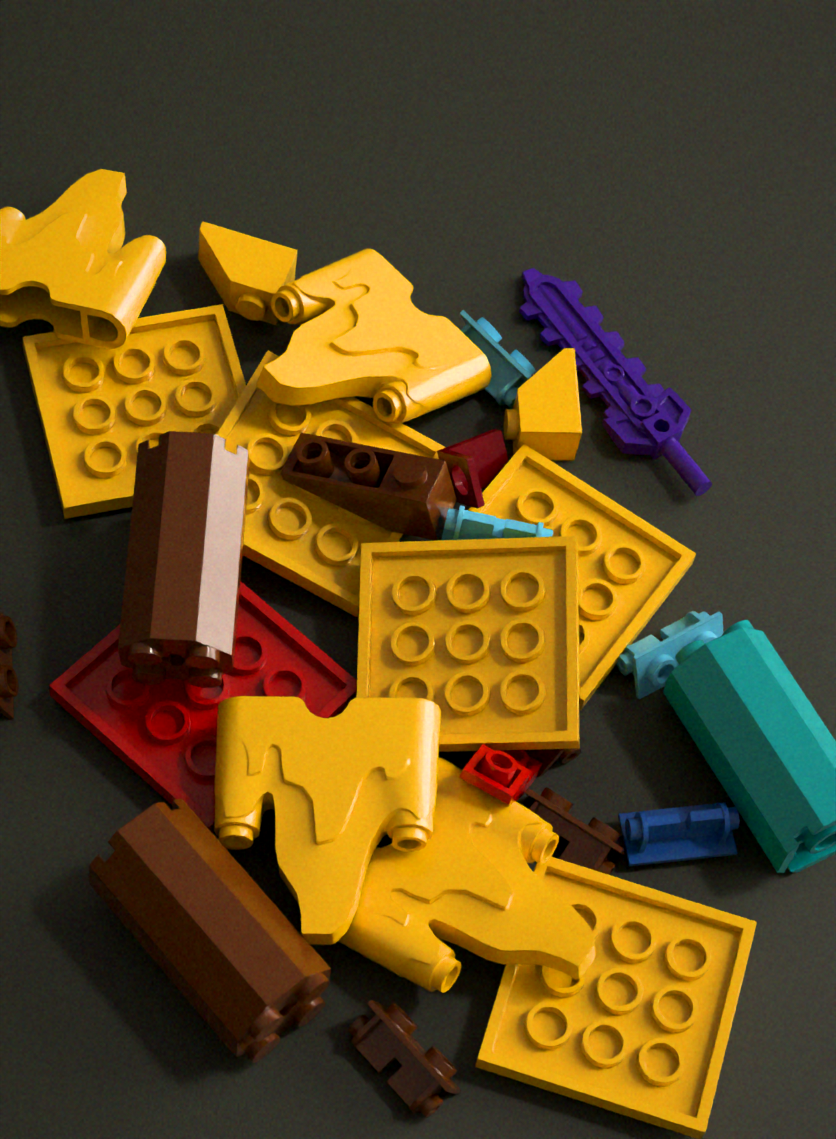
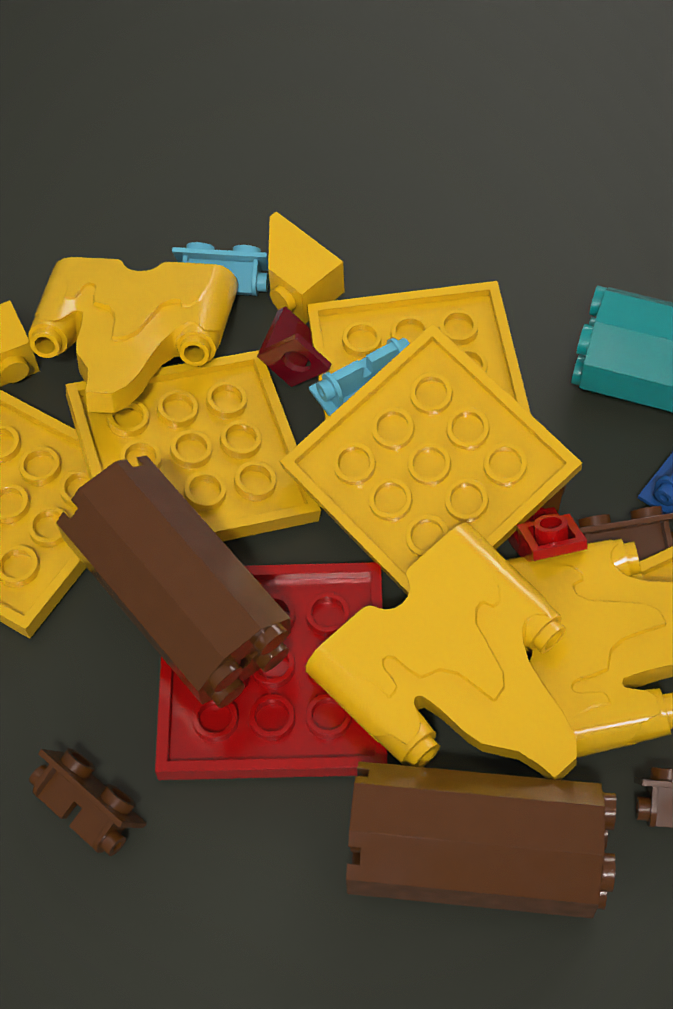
camera: 30 degrees left, 0 degrees up
(378, 484) = (242, 412): reddish brown slope -> none
(638, 415) = (358, 225): dark purple bar -> none
(654, 660) = (555, 342): medium azure hinge -> none

